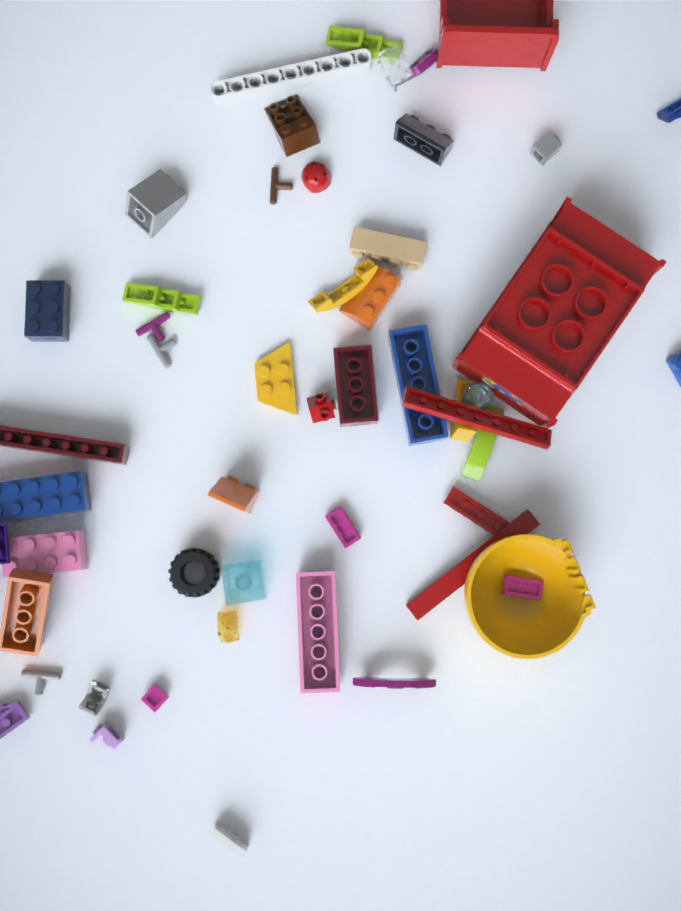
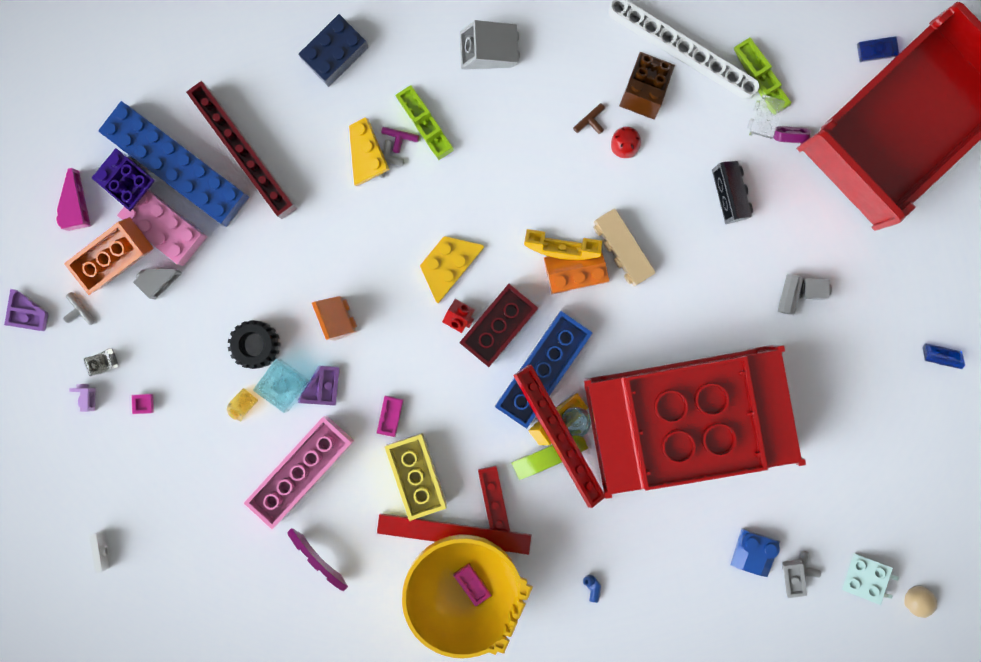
camera: 40 degrees right, 5 degrees up
(77, 598) = (155, 281): none -> light grey slope
(141, 359) = (366, 153): none -> yellow wing
(273, 554) = (321, 387): none -> medium lavender wing
(405, 550) = (416, 476): none -> light yellow brick
(533, 168) = (790, 294): none -> light grey axle
(609, 503) = (594, 586): none -> blue arm

